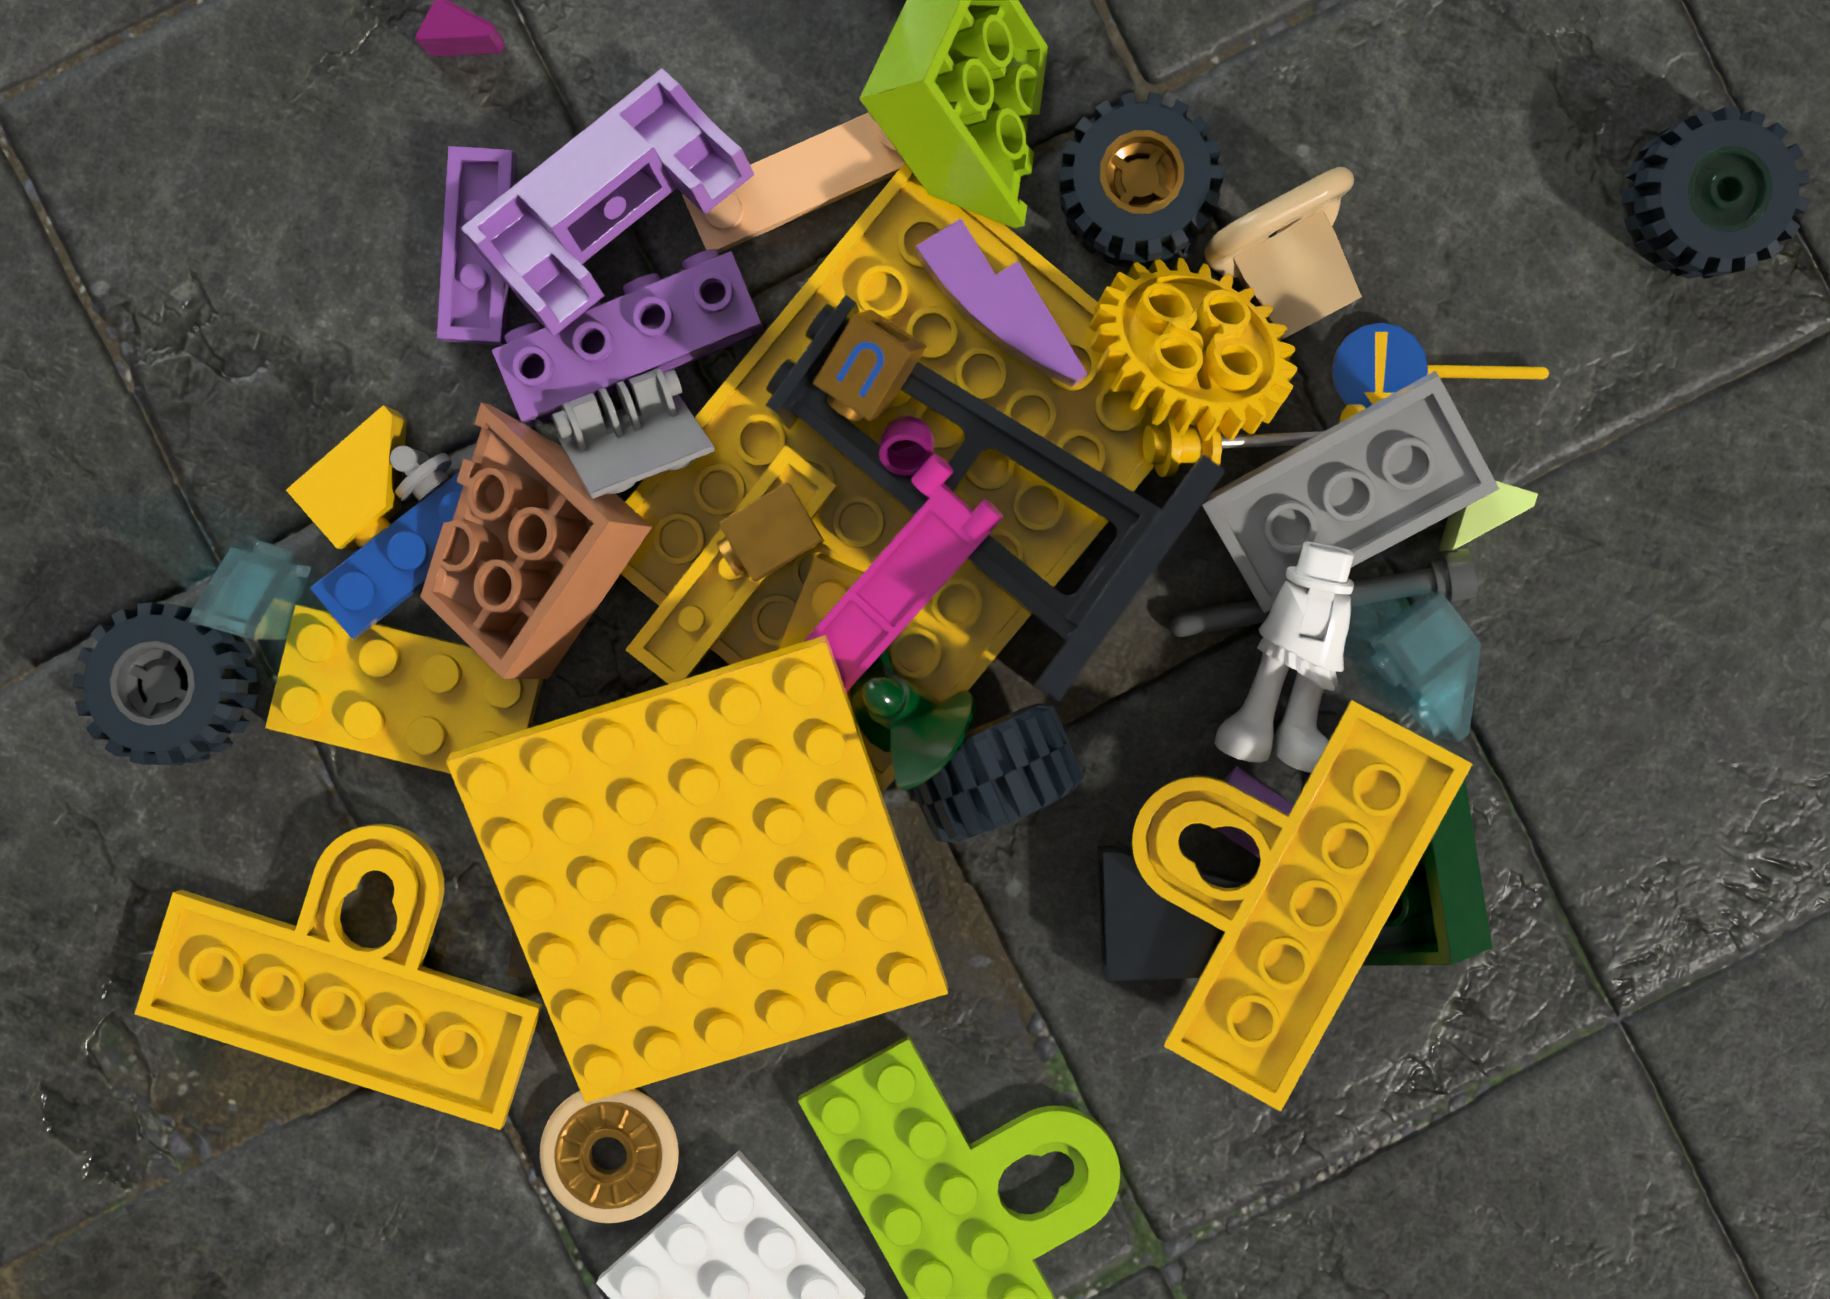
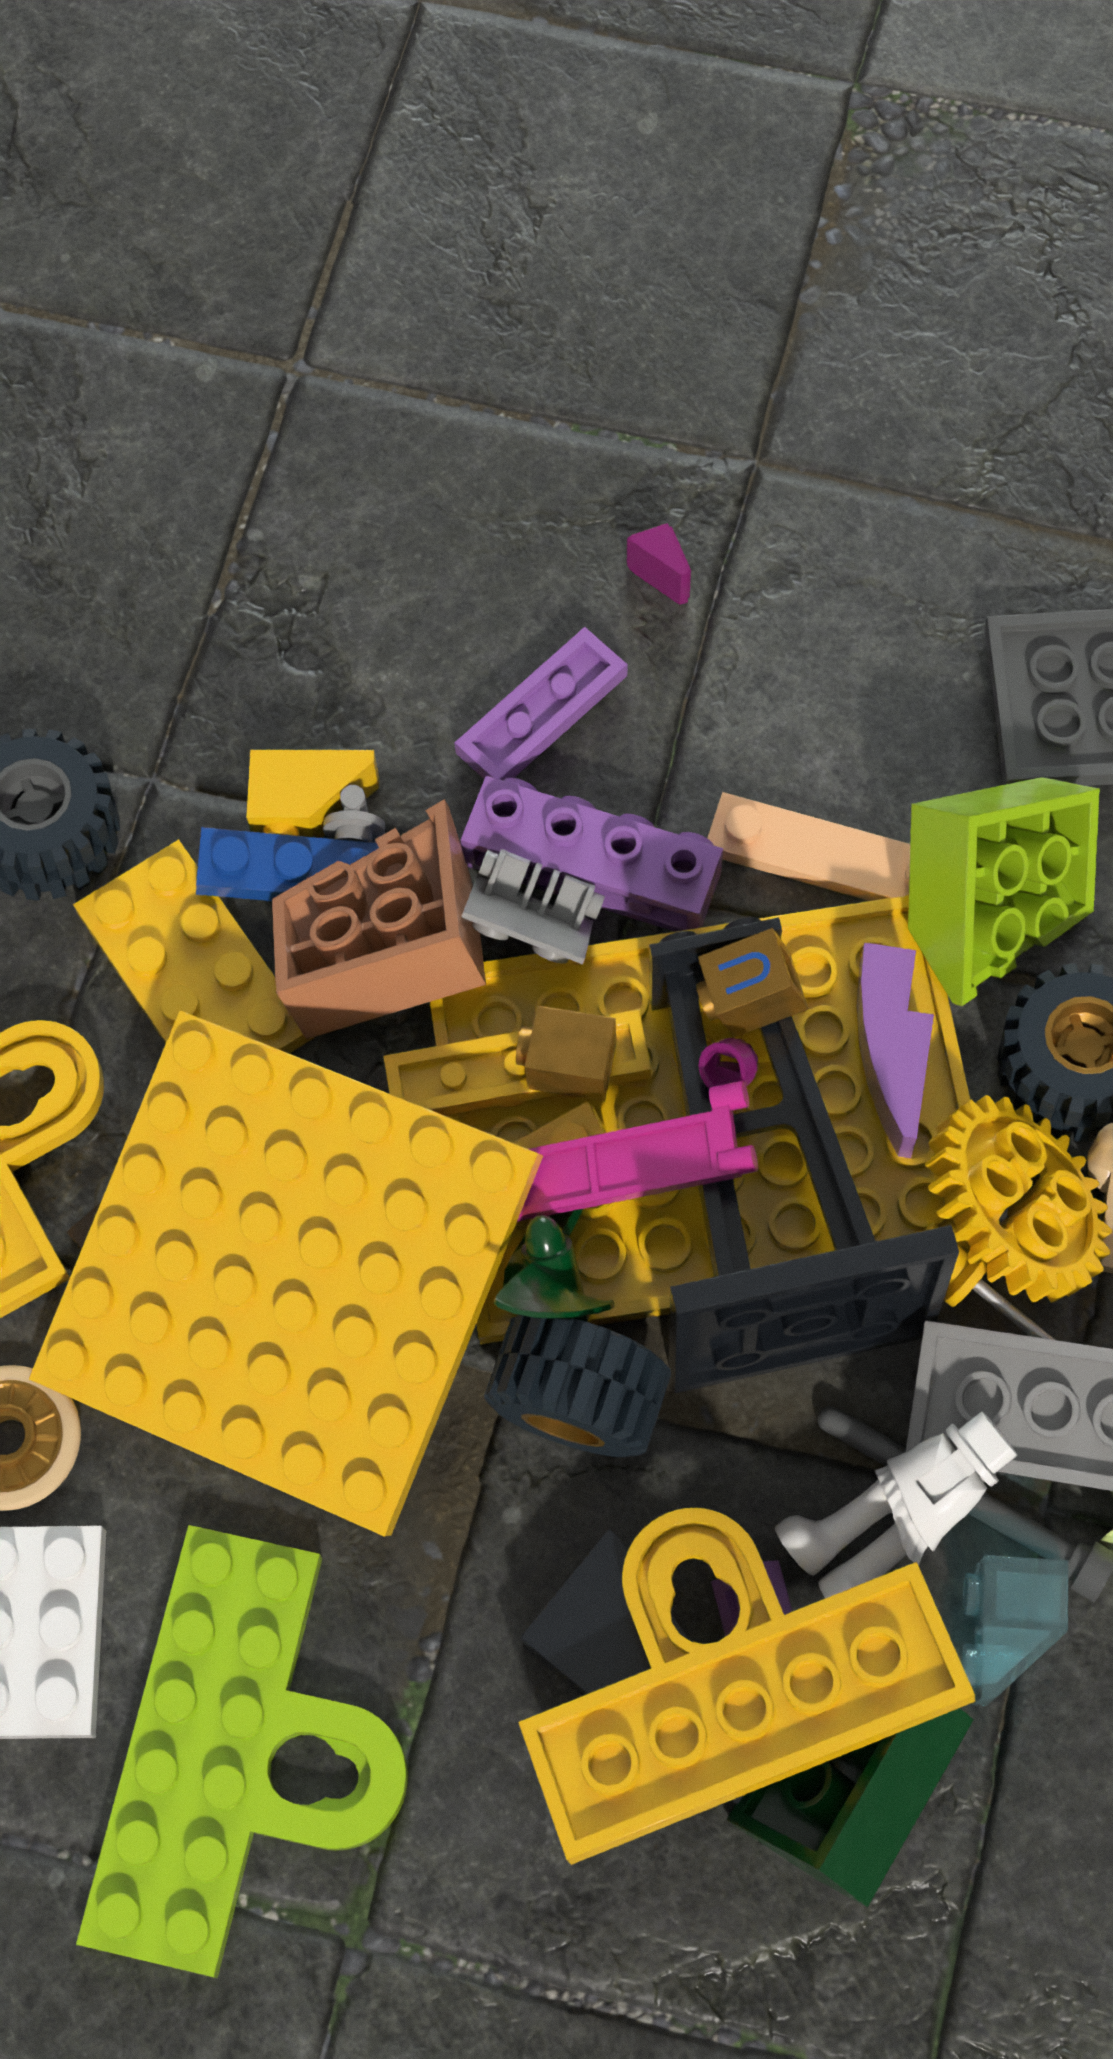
camera: 50 degrees right, 20 degrees down
(253, 592) = (158, 800): clear light blue slope -> none
(599, 188) = (664, 733): medium lavender bracket -> none

